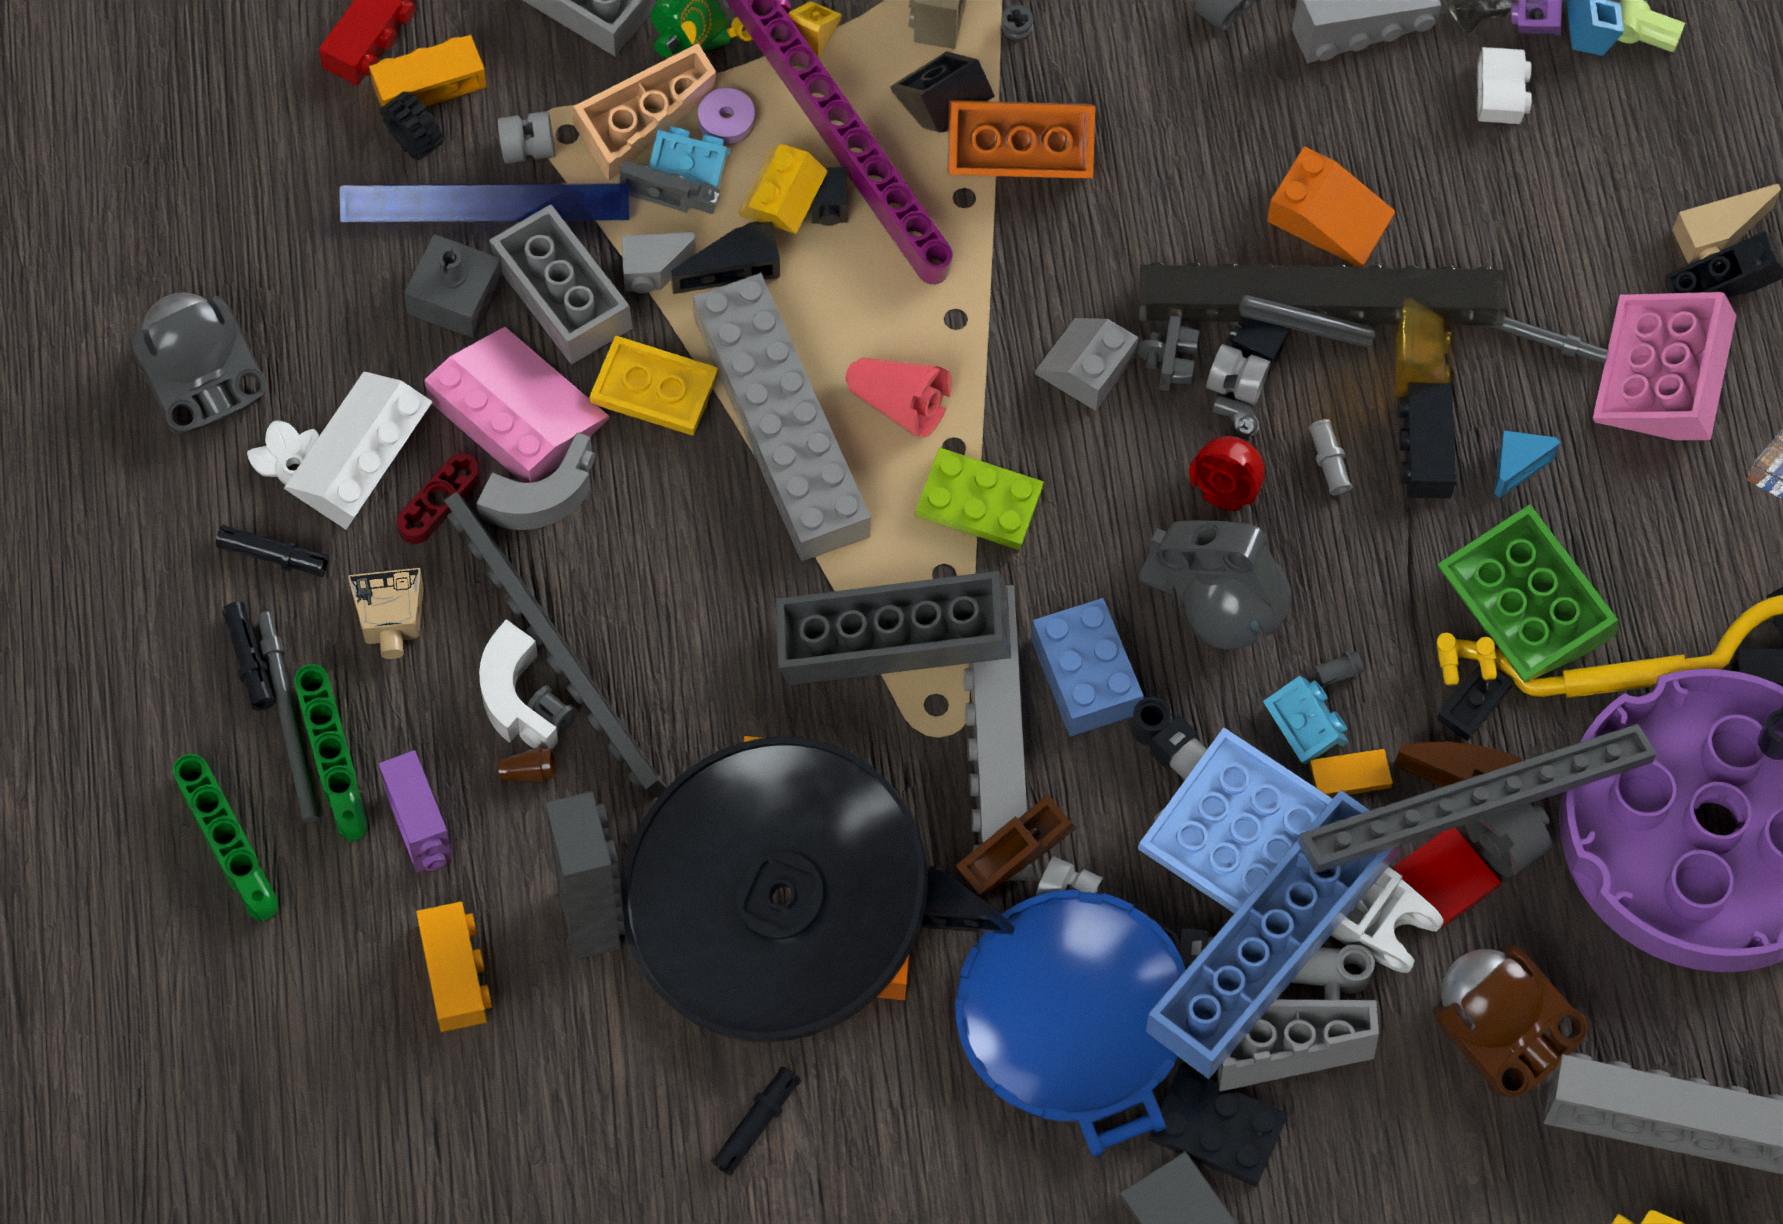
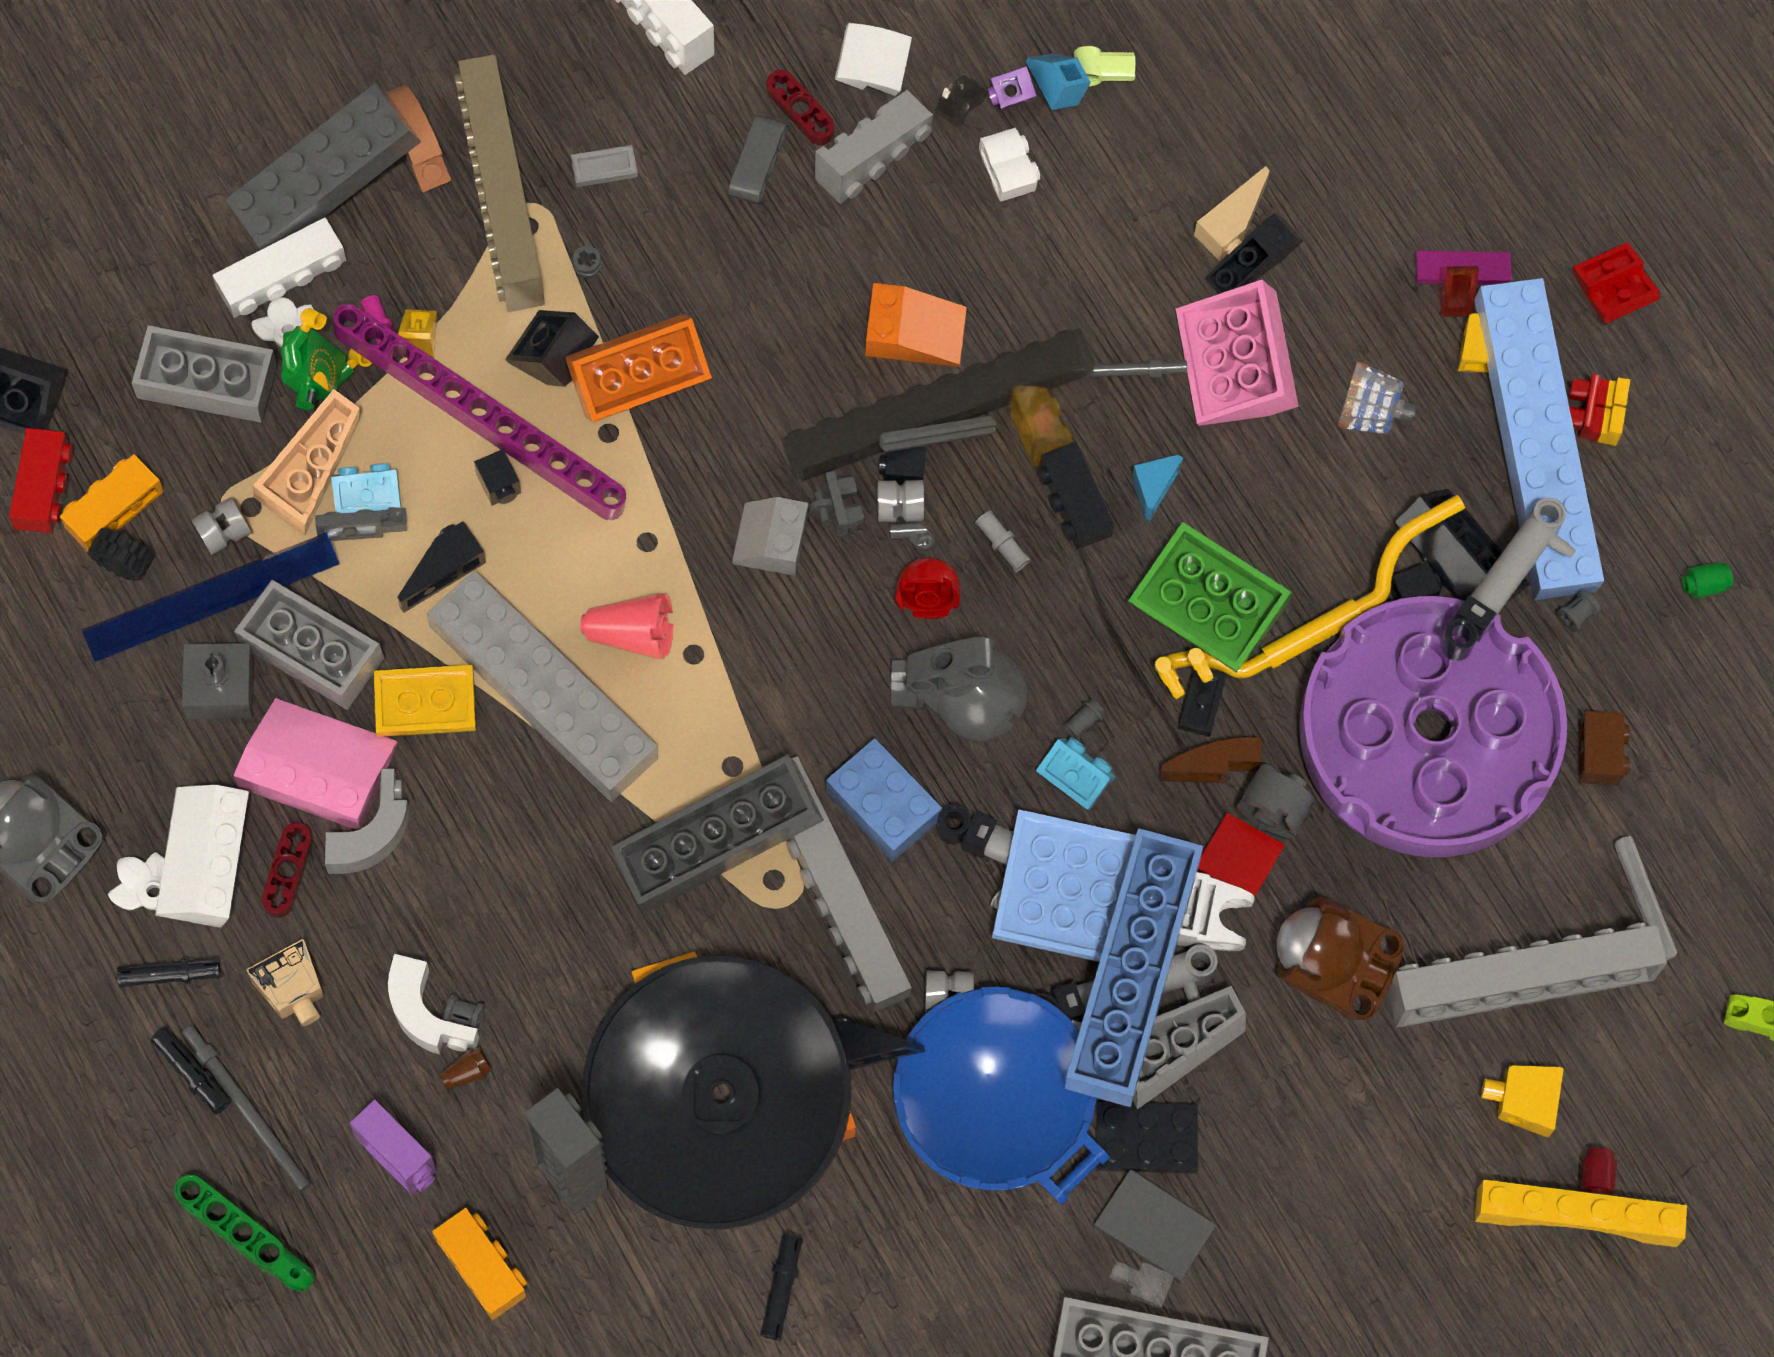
camera: 25 degrees left, 5 degrees up
(346, 806) = (333, 1164): green piece -> none
(561, 656) = (452, 965): dark grey plate -> none
(652, 257) = (376, 591): light grey slope -> none
(726, 102) = (379, 425): lavender piece -> none
(783, 188) = (458, 488): yellow slope -> none
(979, 498) = (734, 690): lime plate -> none
(1016, 846) = (895, 976): reddish brown slope -> none
(1351, 773) = (1129, 802): light orange tile -> none
(1476, 798) = (1247, 792): dark grey plate -> none

